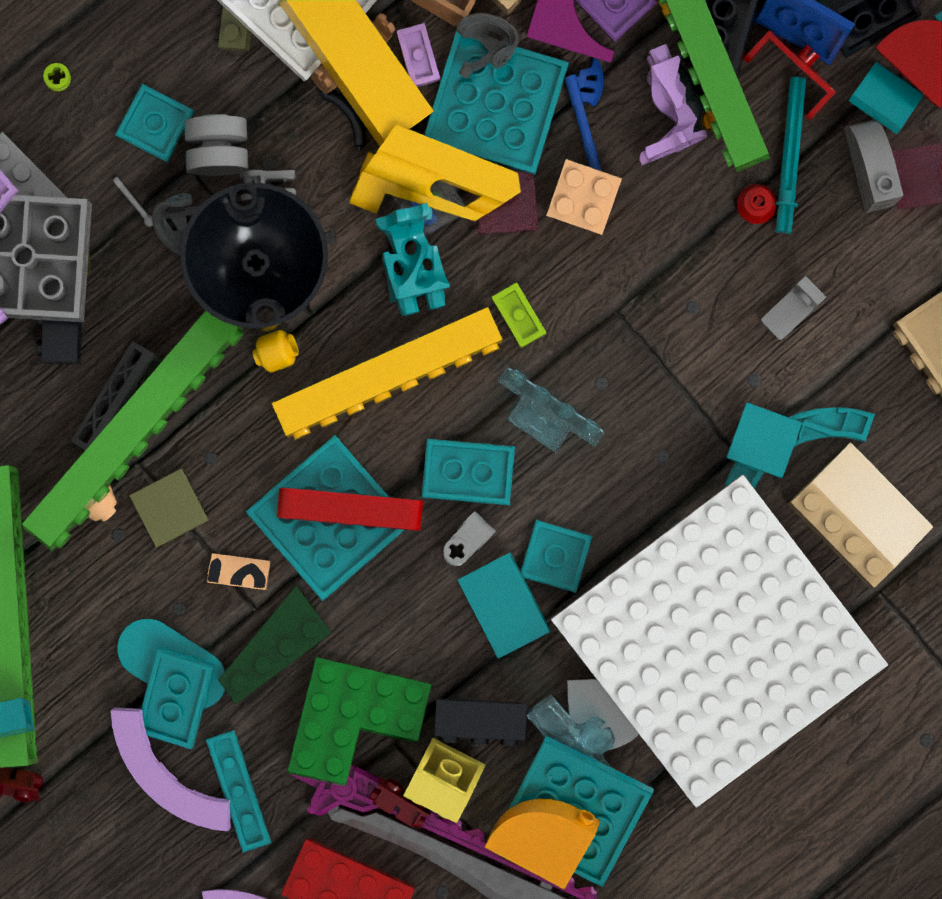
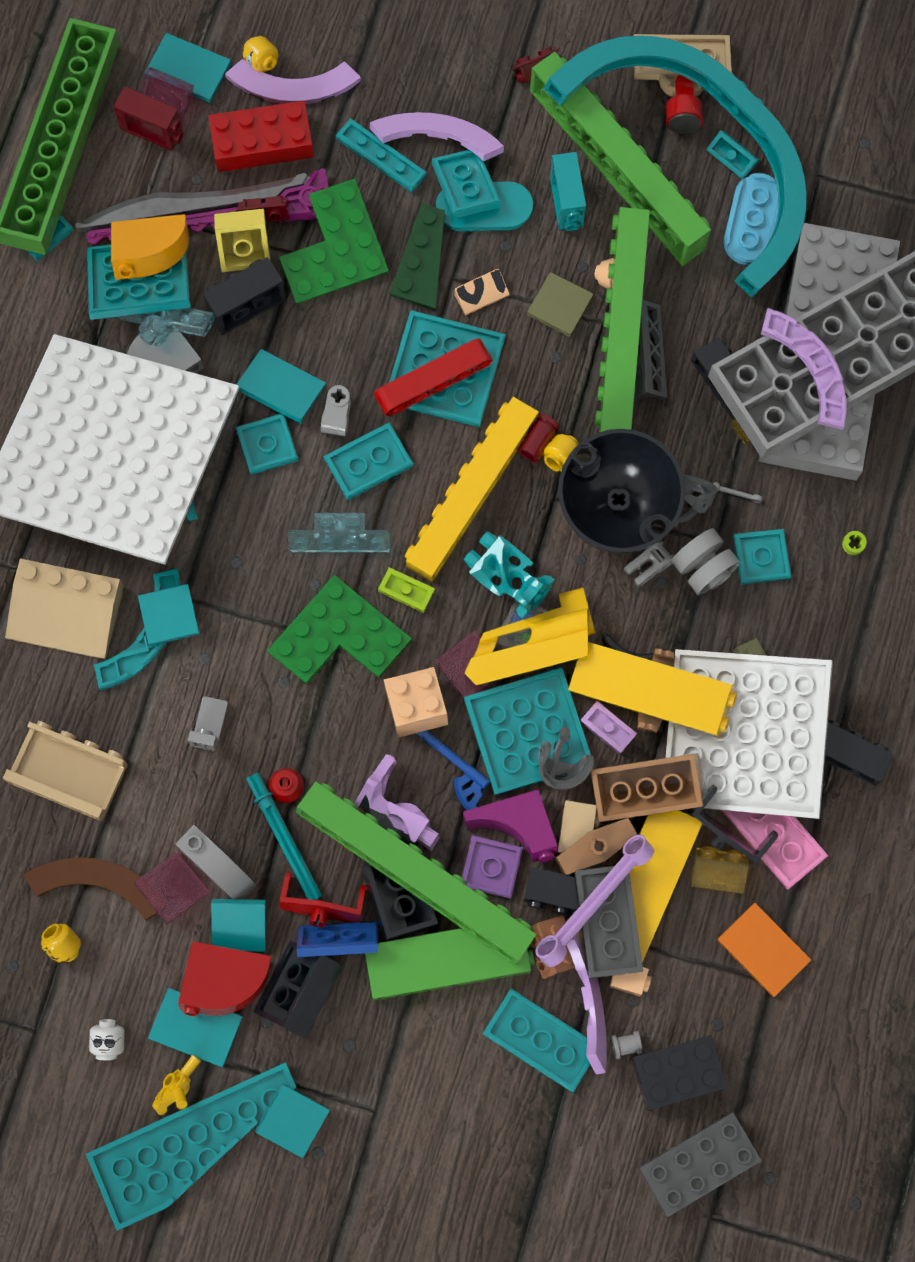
camera: 140 degrees right, 10 degrees down
(81, 614) = (567, 191): none -> teal window
(287, 381) = (538, 438): none -> dark red piece
(610, 334) = (337, 620): none -> green plate

